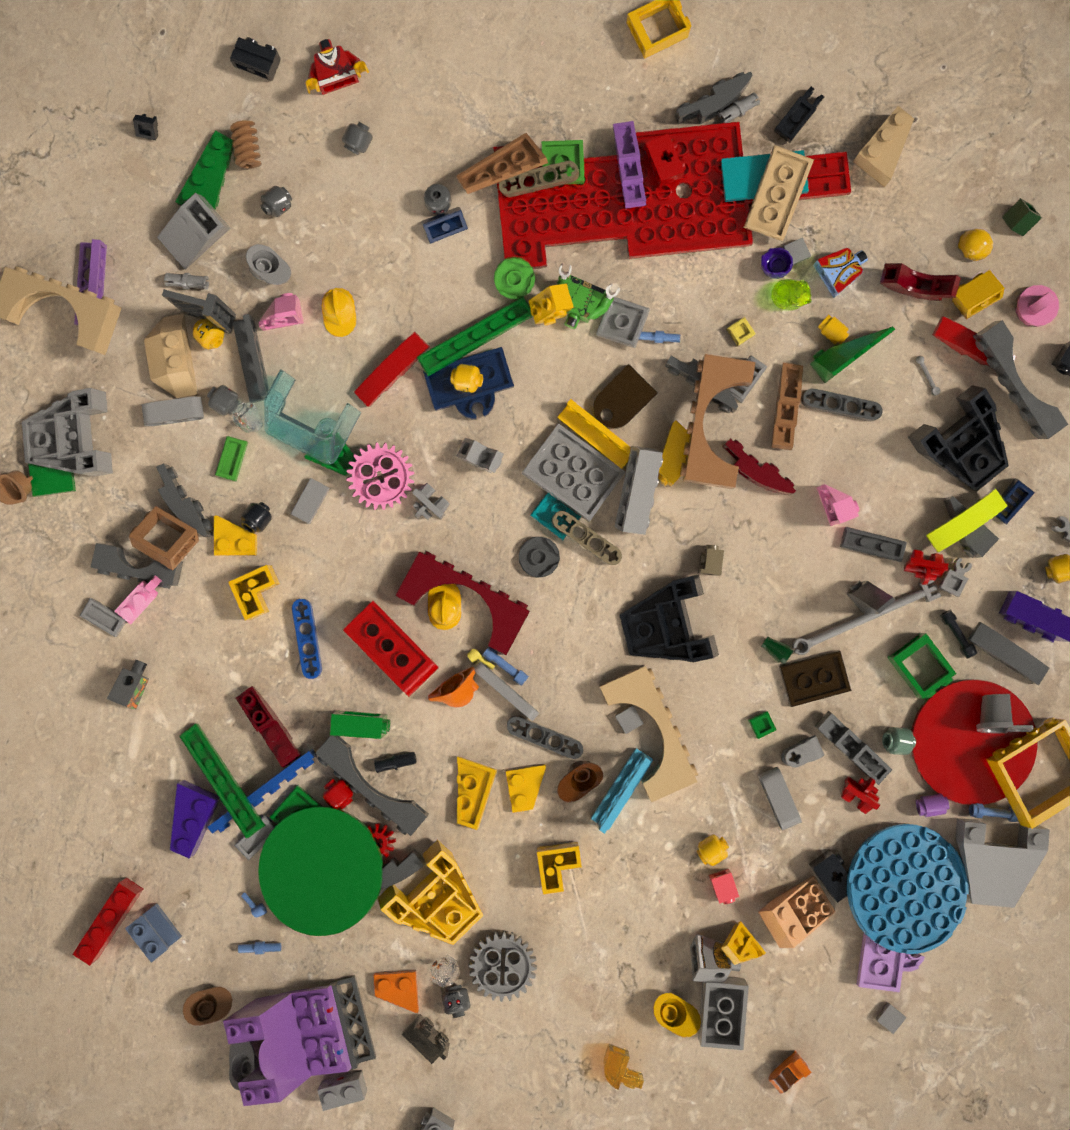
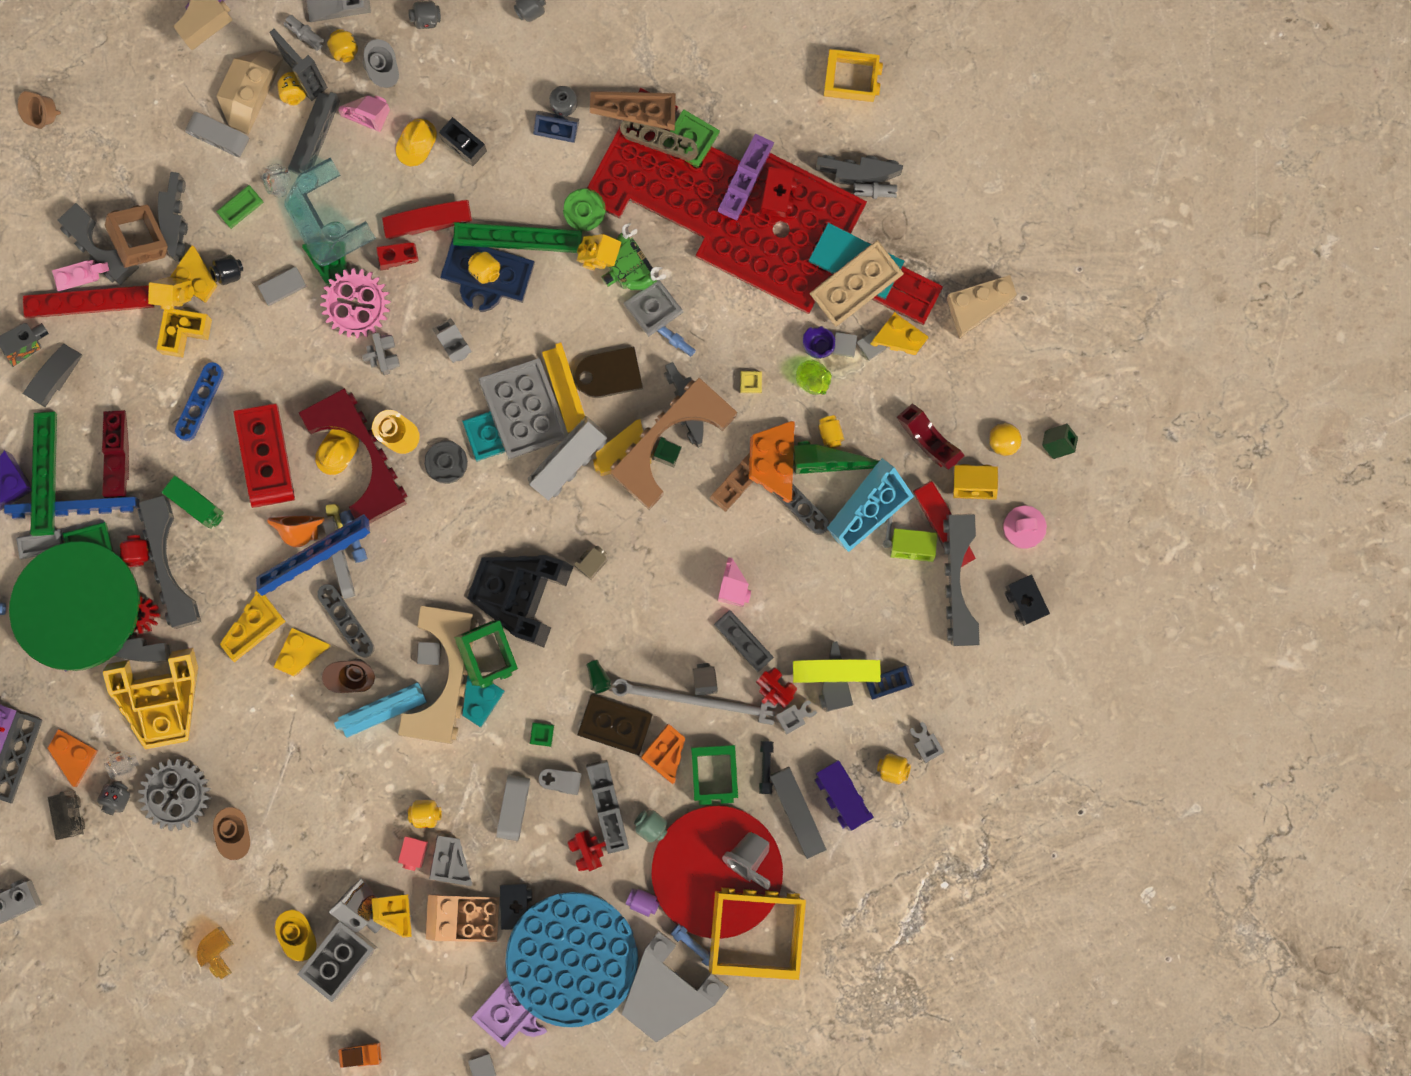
camera: 25 degrees right, 5 degrees down
(50, 481) = (79, 120): green tile -> none
(63, 435) = (110, 94): light grey wedge -> none
(103, 617) = (38, 270): light grey tile -> none
(161, 616) = (86, 301): none -> red plate
(173, 695) = (52, 375): none -> dark grey slope
(223, 400) = (266, 152): dark grey head -> none
(224, 566) = (170, 292): none -> yellow brick
(225, 271) = (342, 45): none -> yellow head
(378, 286) = (462, 141): none -> black brick
(386, 415) = (396, 255): none -> red leg
(395, 762) = (202, 557): black axle -> none
(484, 559) = (395, 431): none -> yellow piece
(486, 703) = (313, 555): none -> blue plate
(553, 860) = (277, 731): yellow brick -> none
(570, 968) = (231, 833): none -> medium nougat piece
(585, 540) = (500, 470): dark tan beam -> none
(660, 682) = (469, 660): none -> green window
(694, 728) = (480, 702): none -> teal wing
(714, 432) = (667, 452): none -> dark green panel
(757, 875) = (449, 862): none -> light grey wing
(759, 366) = (746, 425): light grey slope -> none
(764, 476) = (686, 518): dark red slope -> none
(798, 116) = (922, 229): black hinge -> none
(804, 383) = (773, 459): none -> orange wing
(818, 238) = (866, 347): none -> light grey tile
(837, 215) = (900, 336): none -> yellow wing
(840, 269) = (871, 384): torso -> none
(871, 675) = (665, 752): none -> orange wing
(907, 369) = (870, 505): none -> medium azure wedge
(960, 378) = (913, 545): none -> lime hinge
(971, 446) = (883, 611): black wedge -> none

